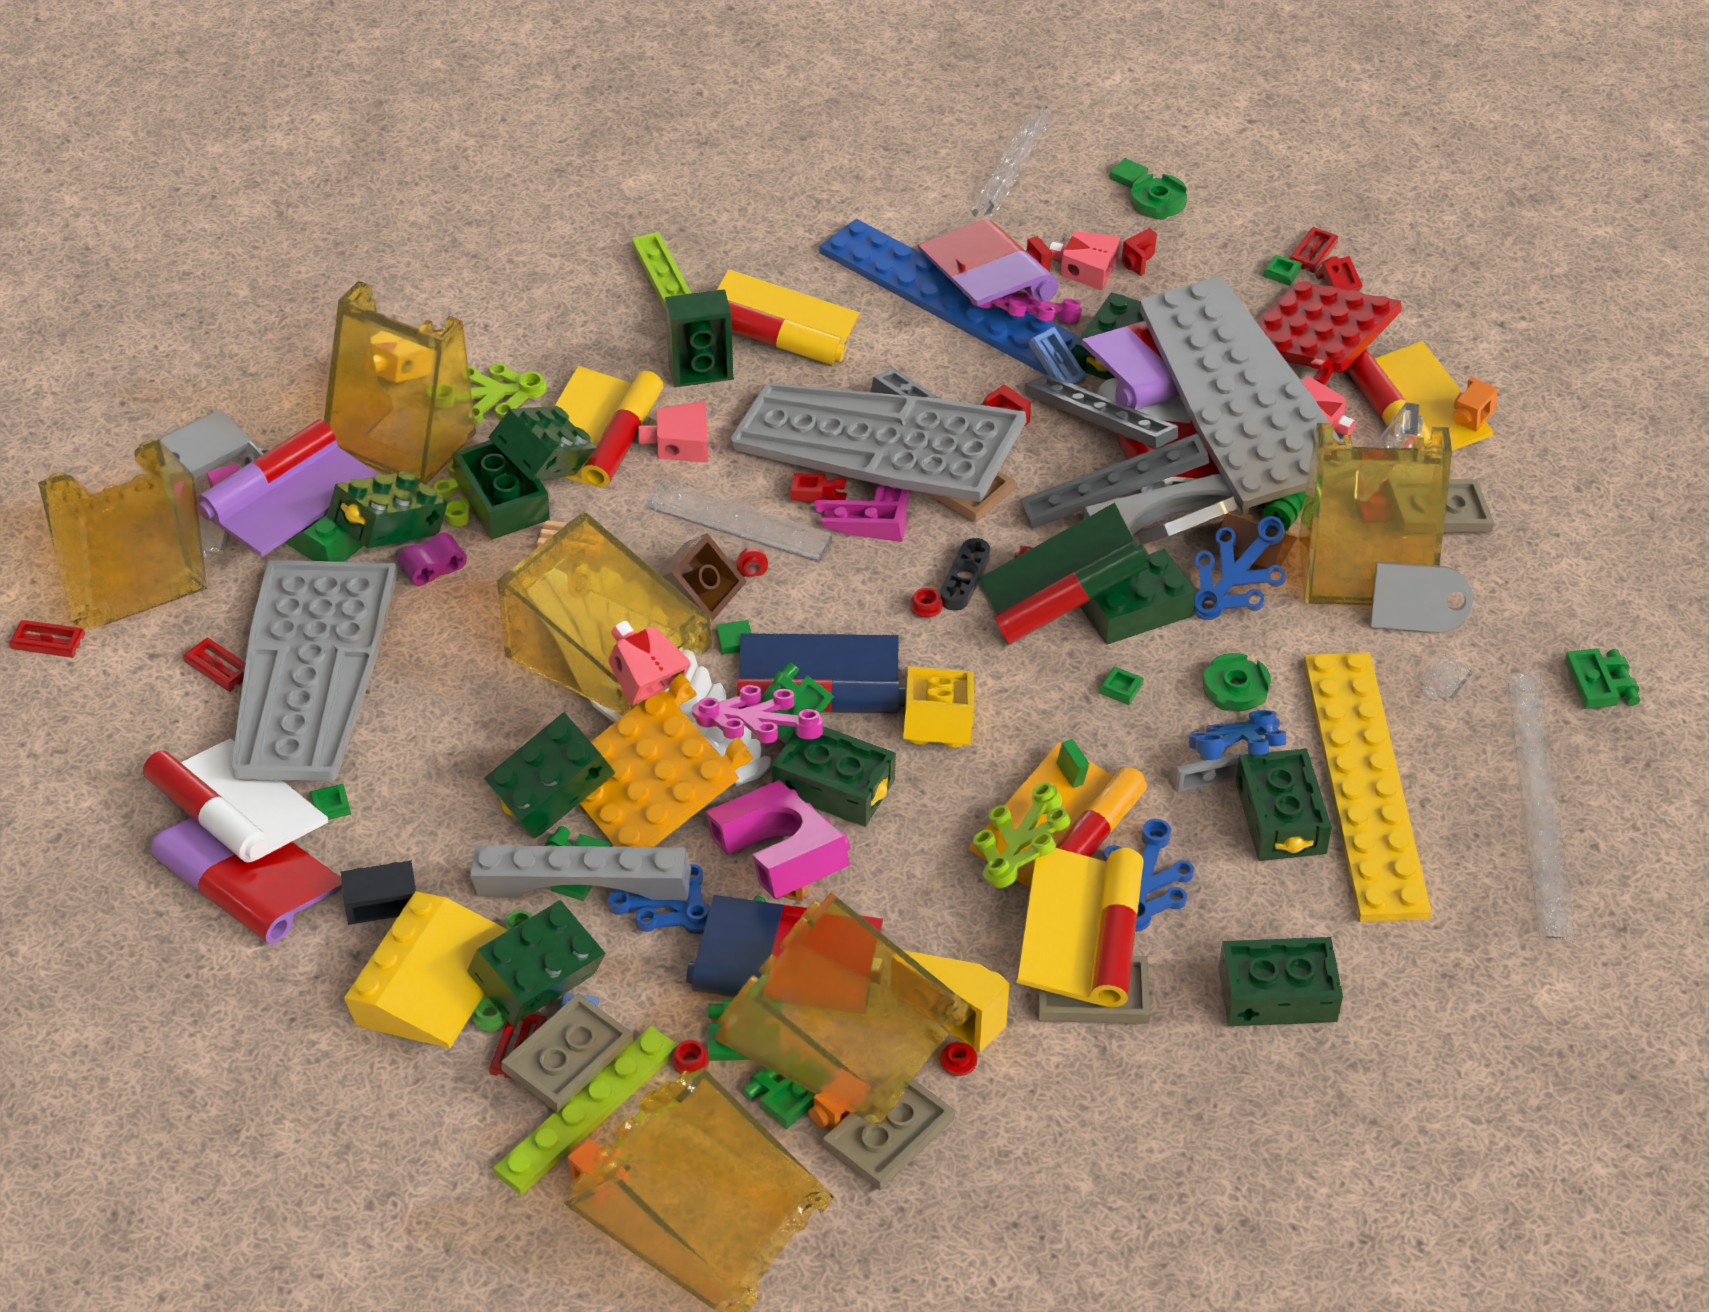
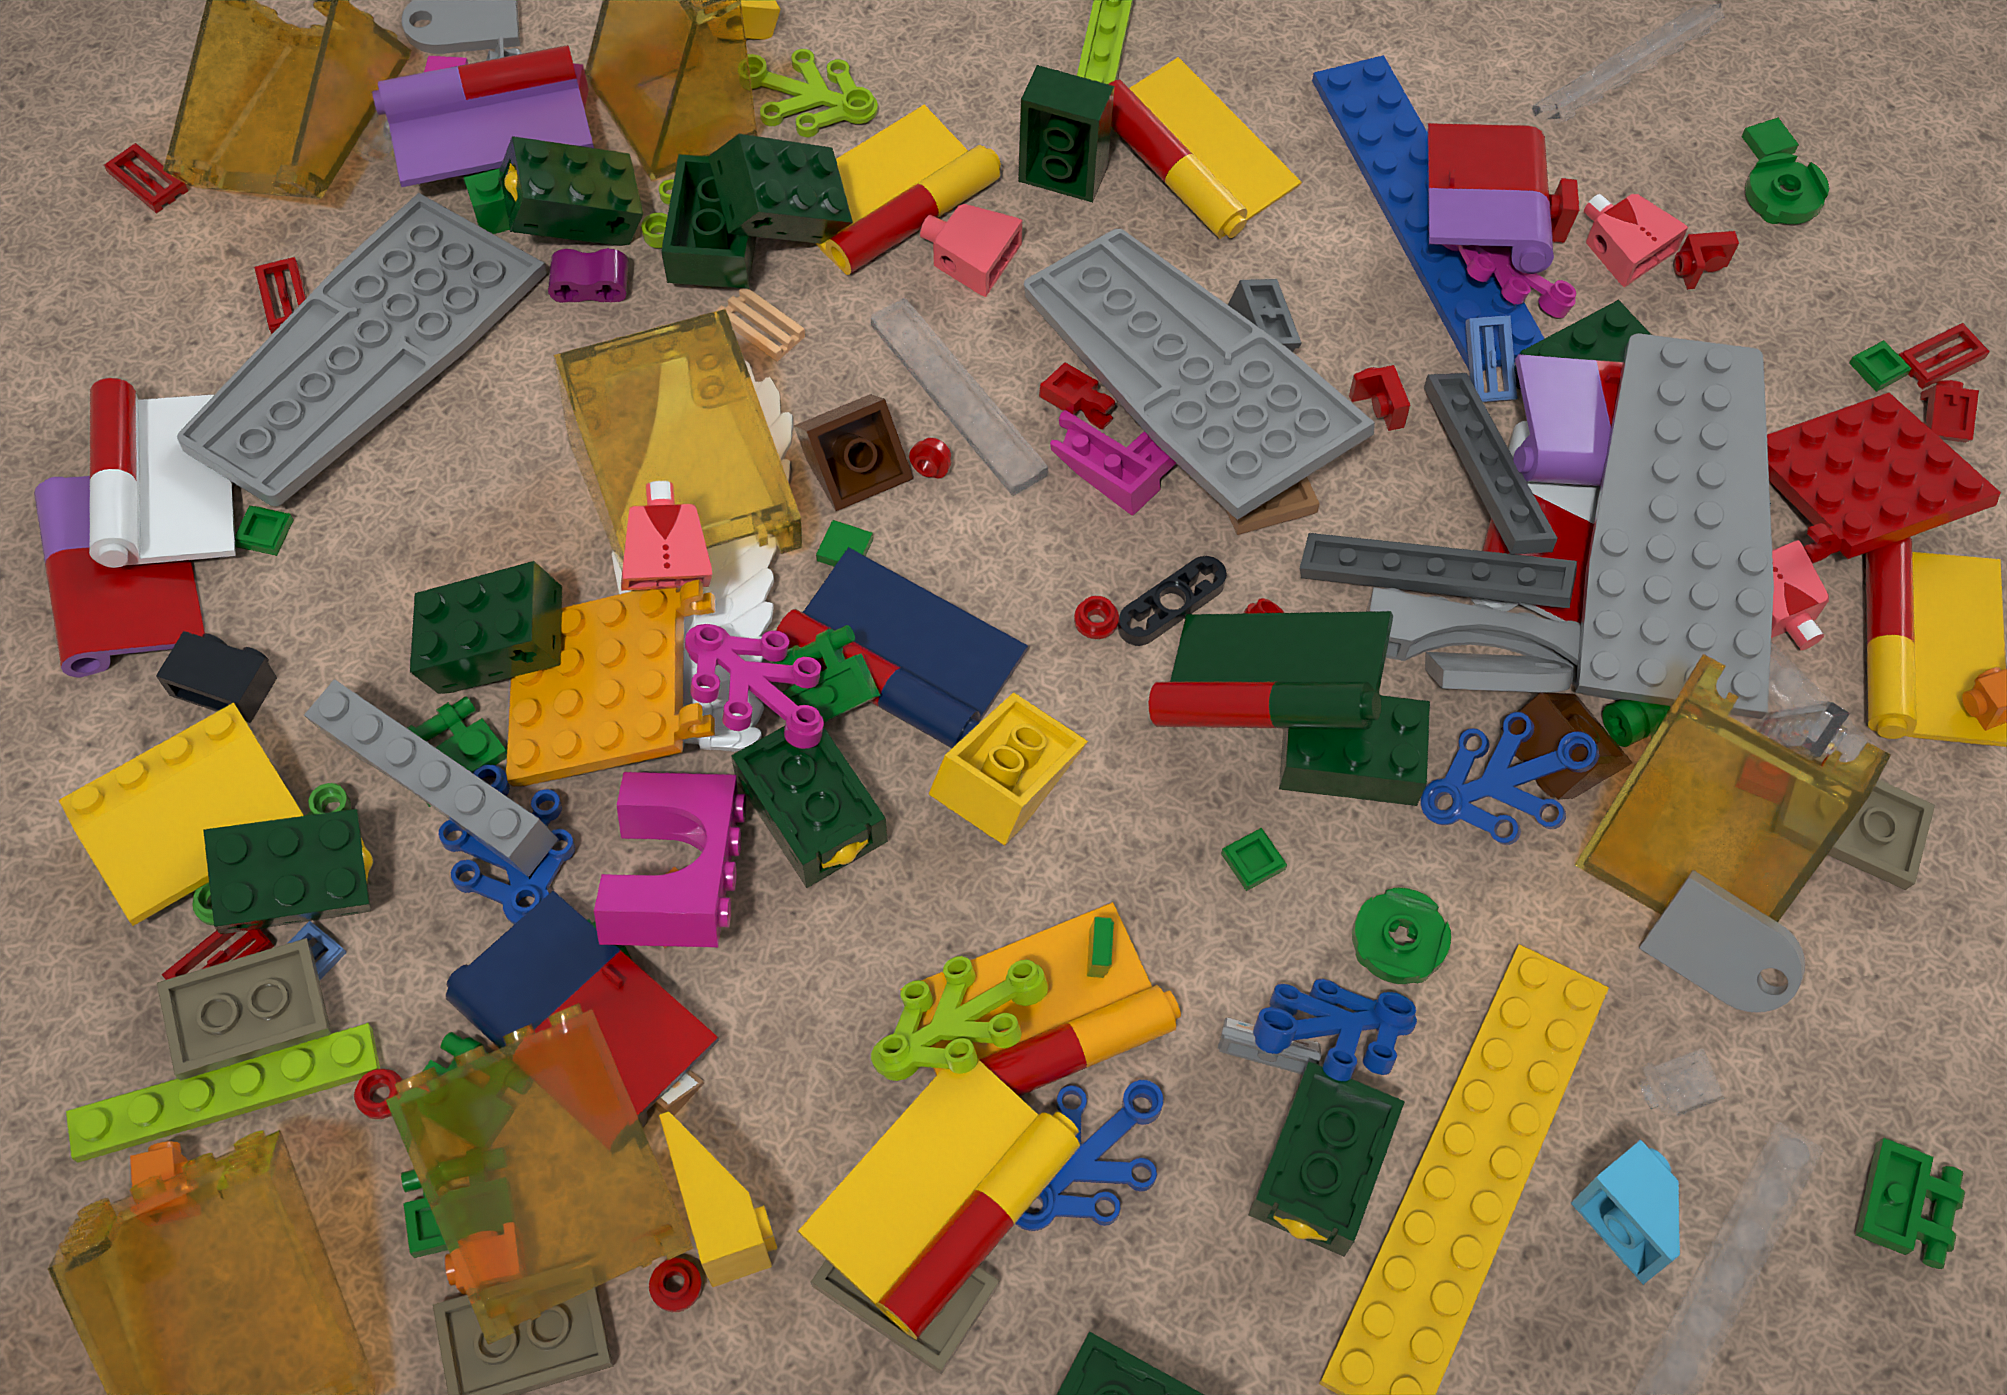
camera: 30 degrees right, 15 degrees up
(1467, 744) = (1636, 1210): none -> medium azure slope

